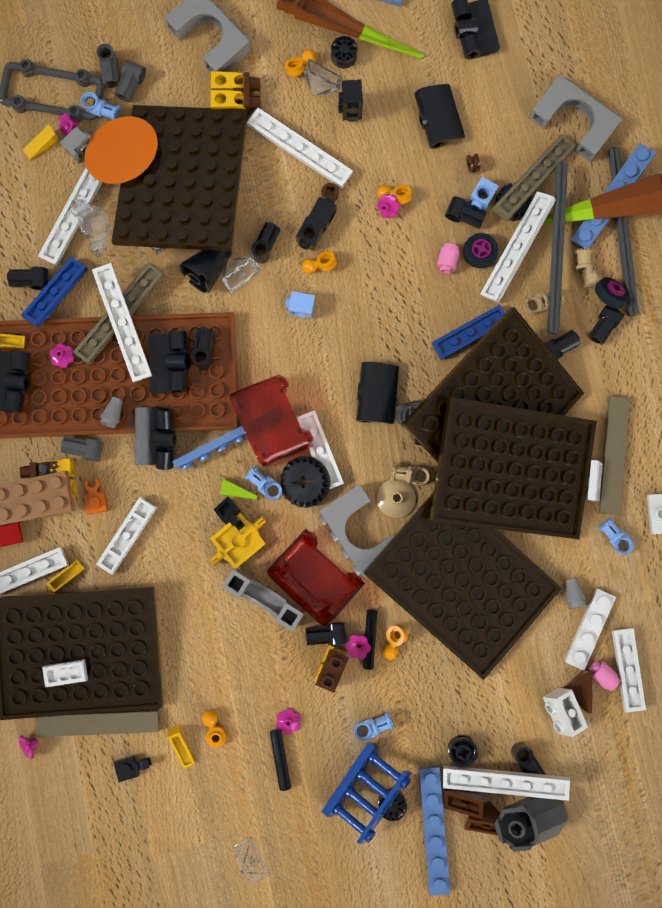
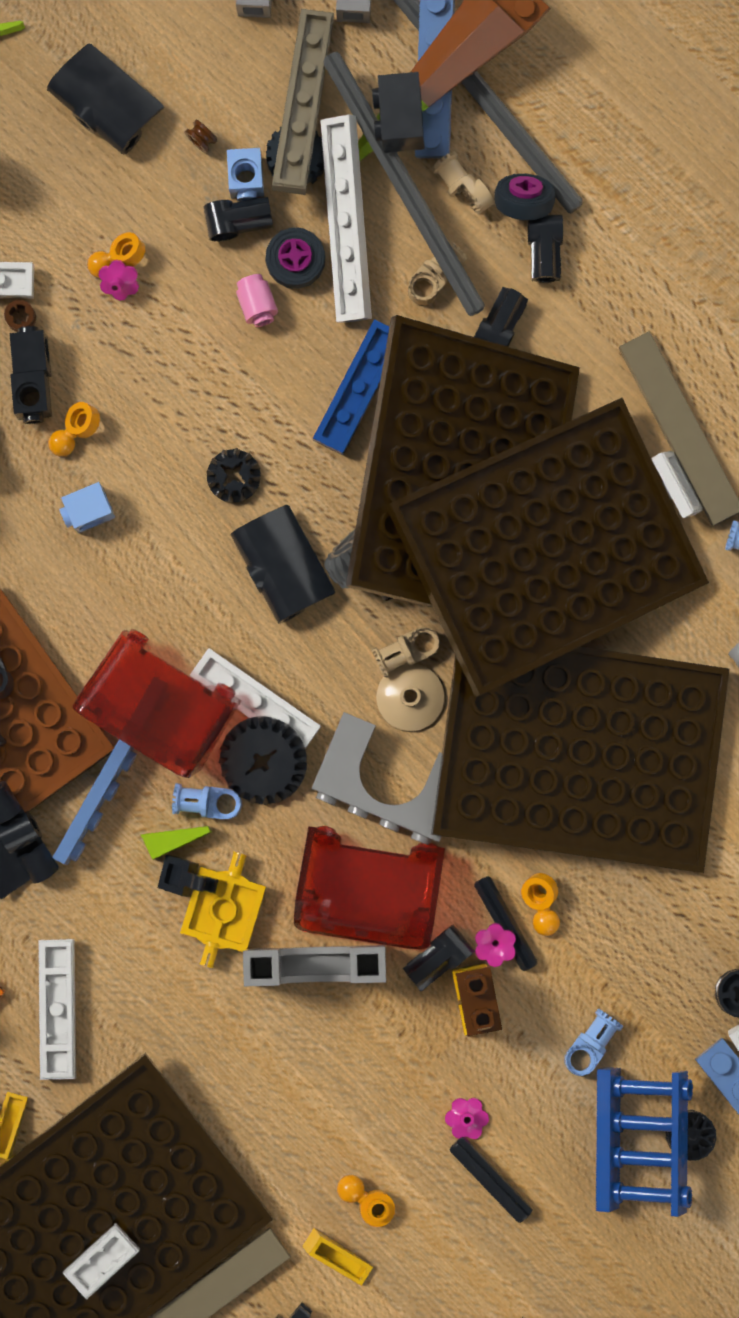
camera: 25 degrees left, 0 degrees up
(377, 343) = (233, 491): none -> black gear
(580, 211) = (400, 112): none -> black brick

